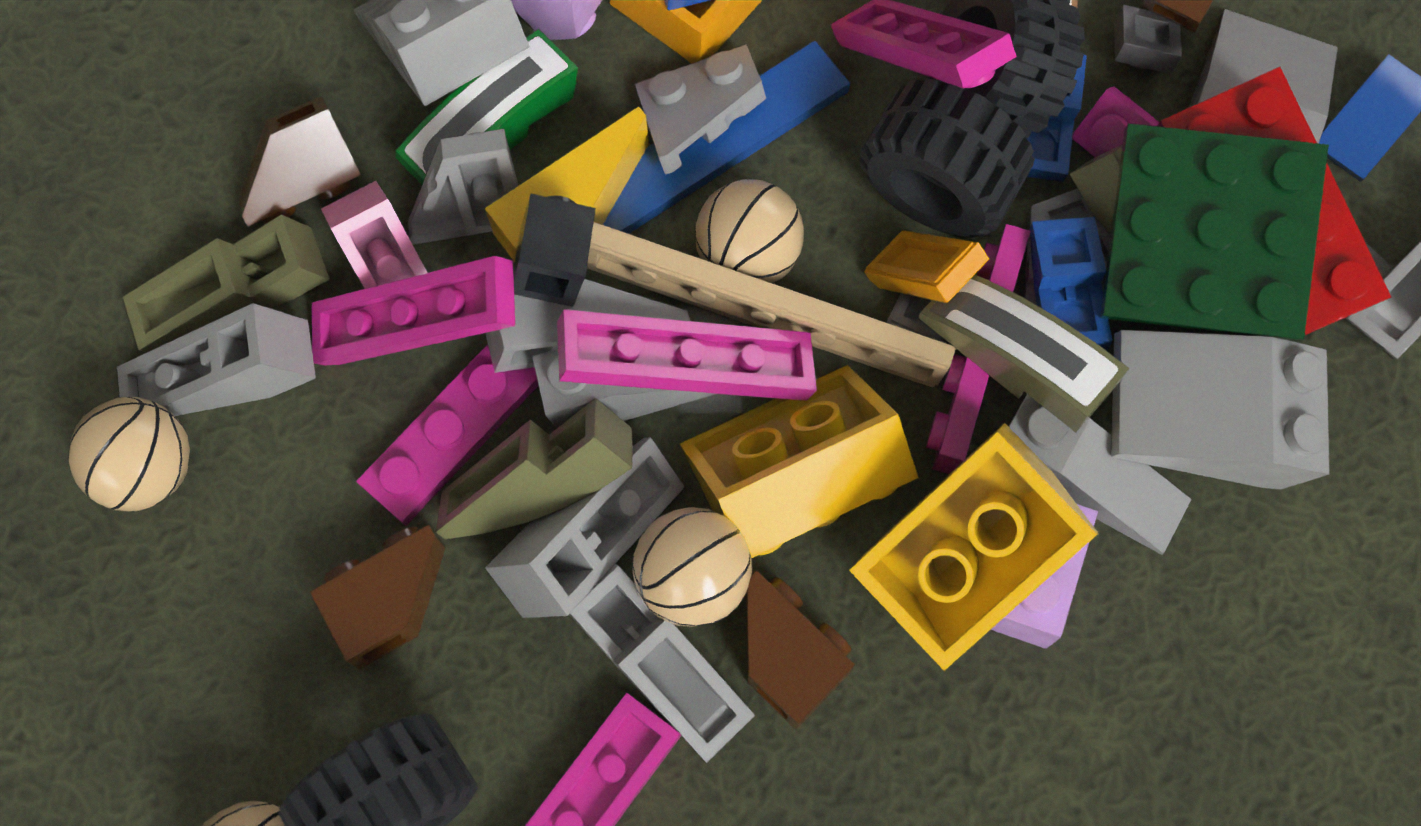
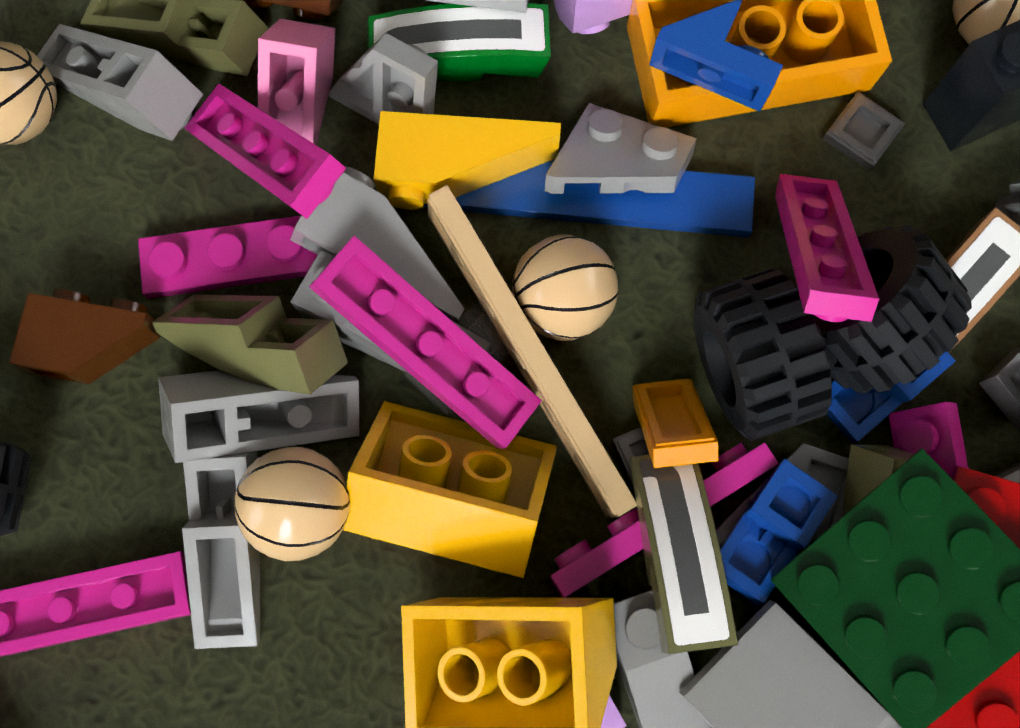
camera: 40 degrees right, 5 degrees up
(553, 249) = (389, 181): black brick -> none
(787, 655) = (308, 628): reddish brown slope -> none

